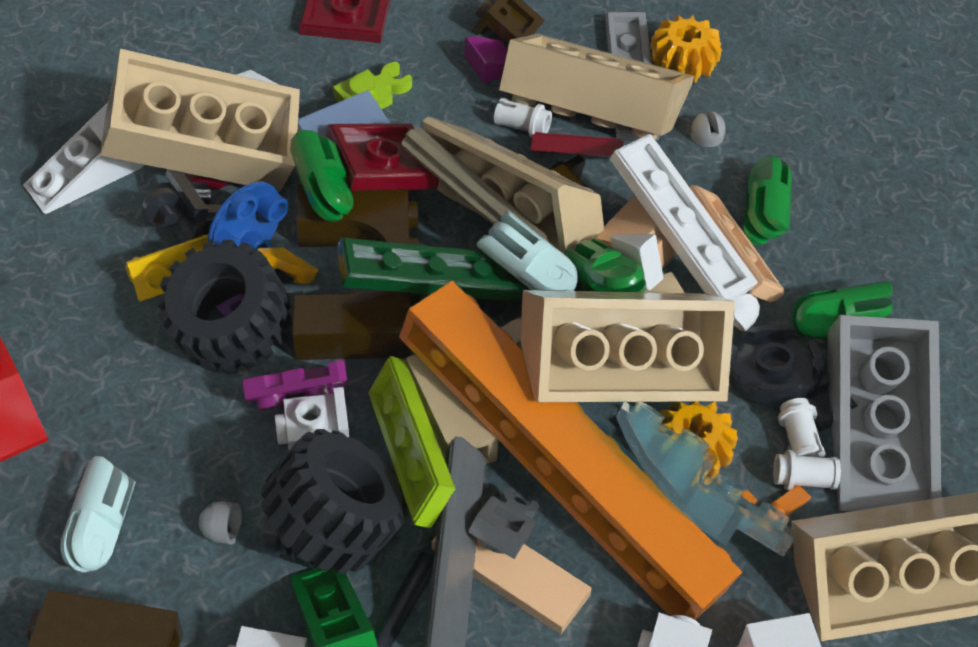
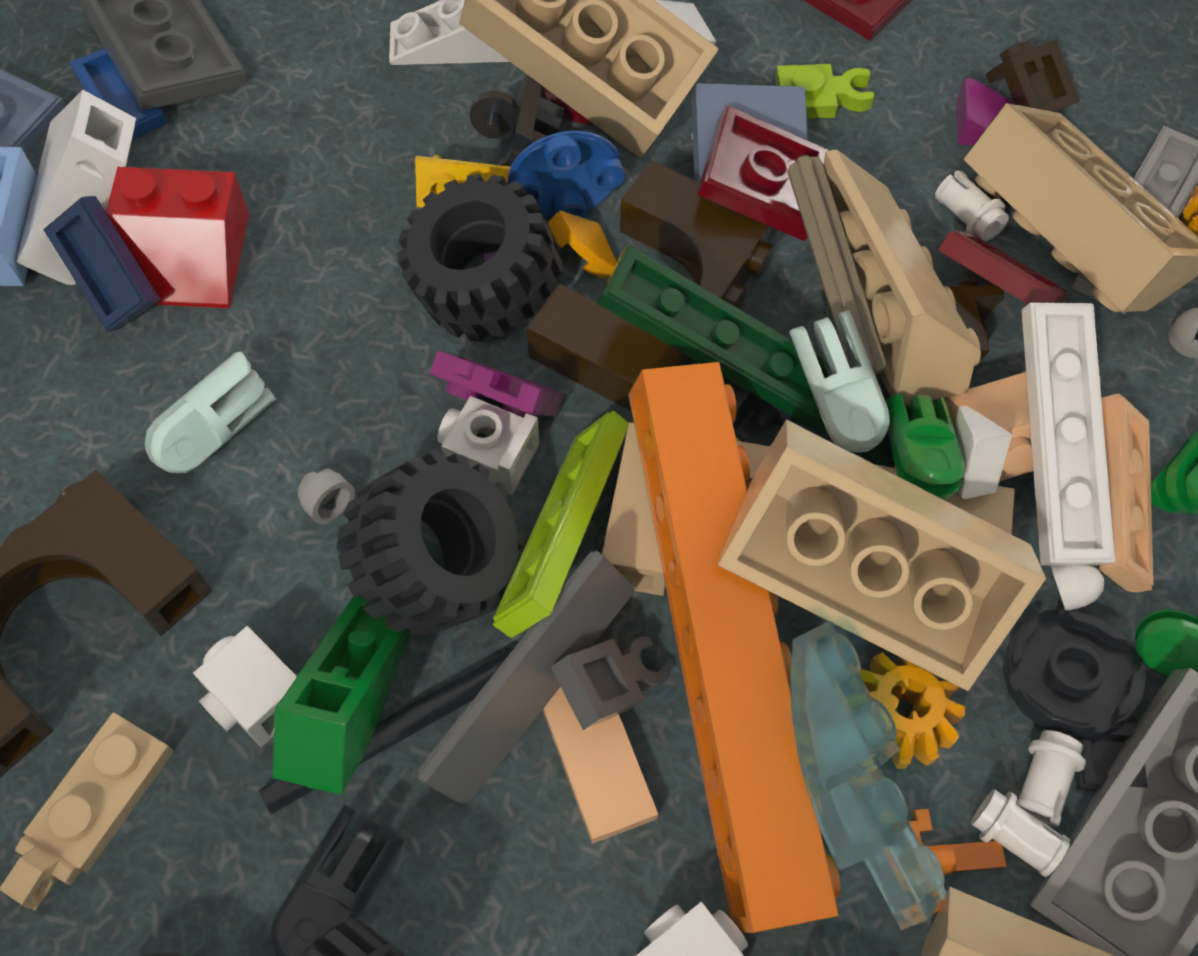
camera: 35 degrees right, 10 degrees up
(321, 175) = (675, 161): green arm -> none

